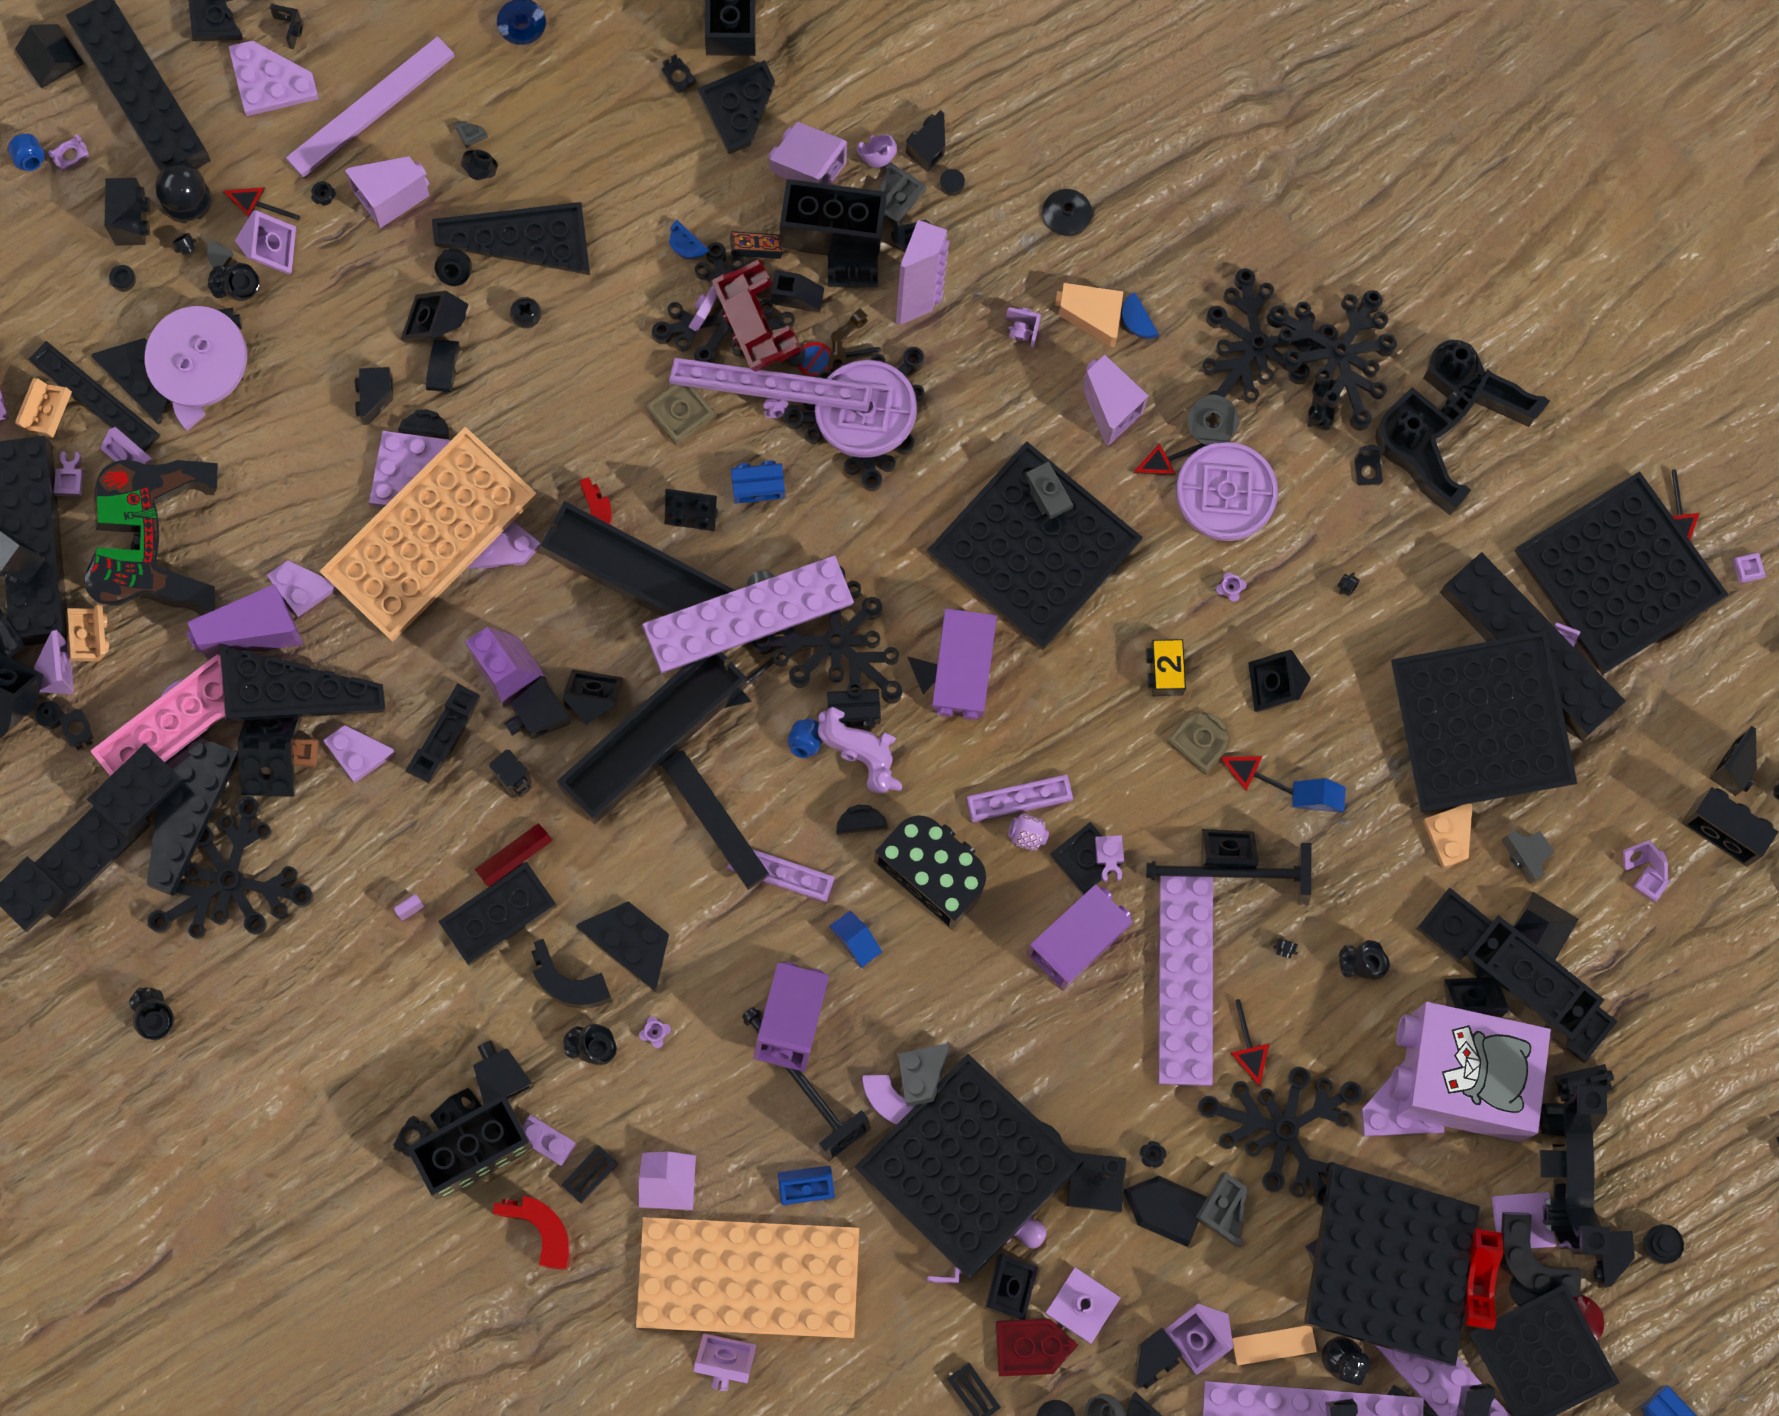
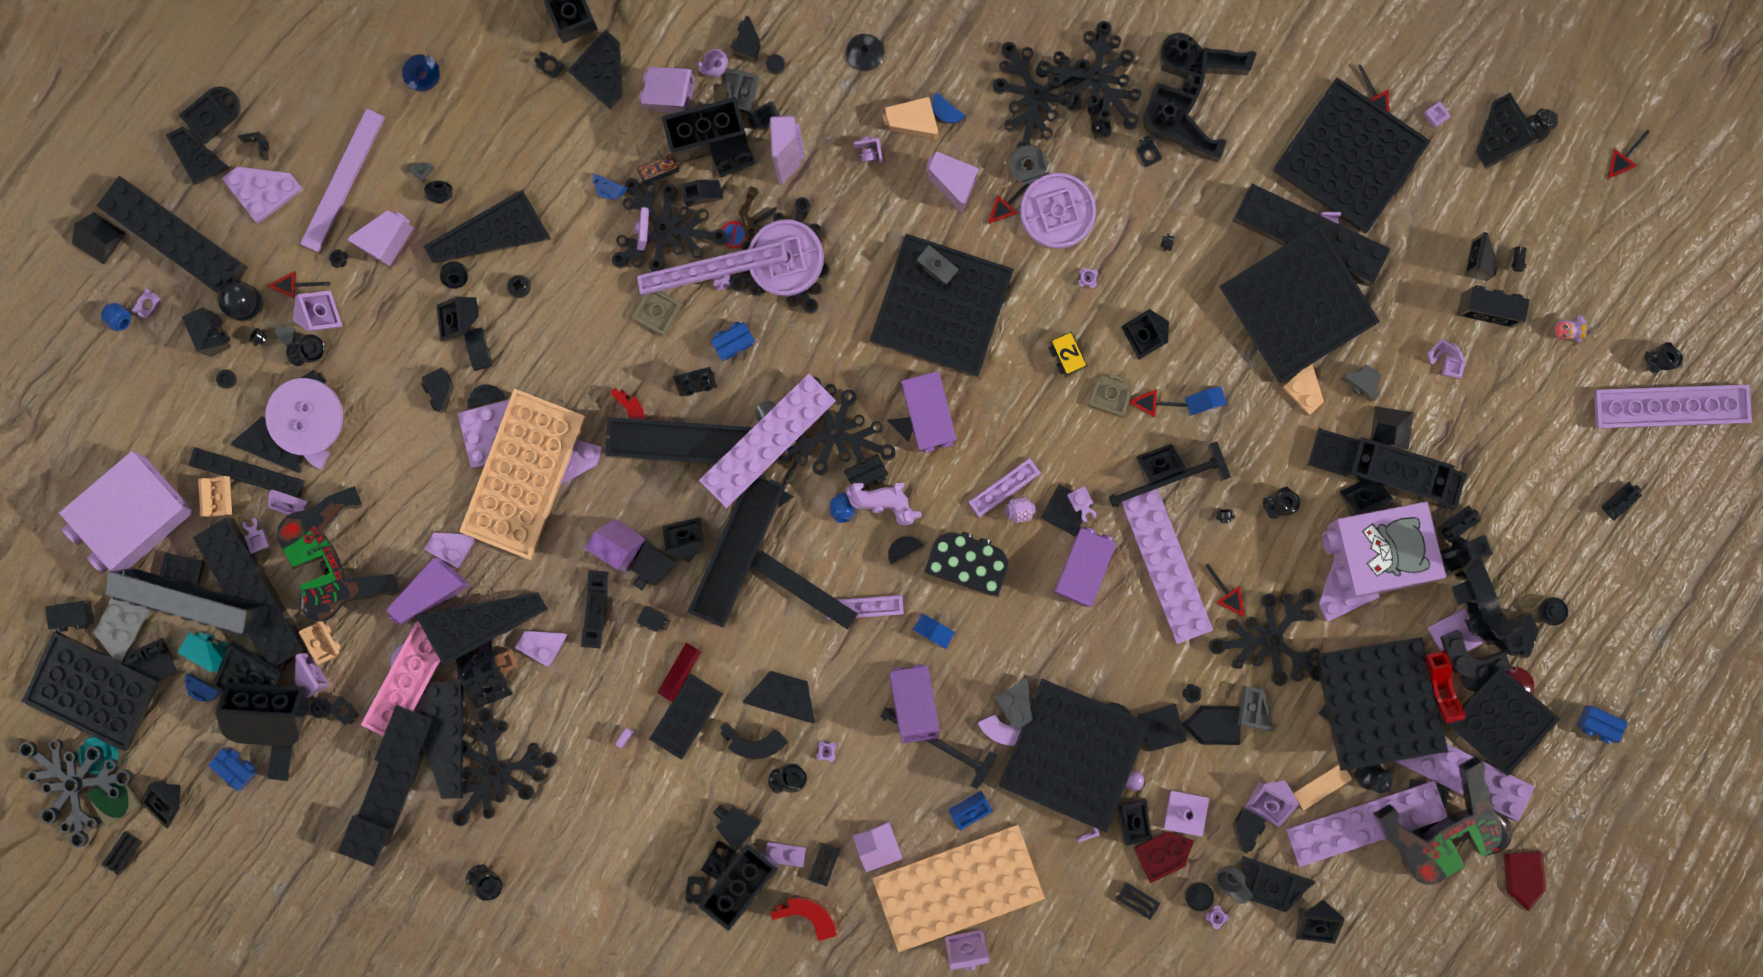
camera: 15 degrees left, 10 degrees up
(745, 315) = (677, 228): bracket -> none

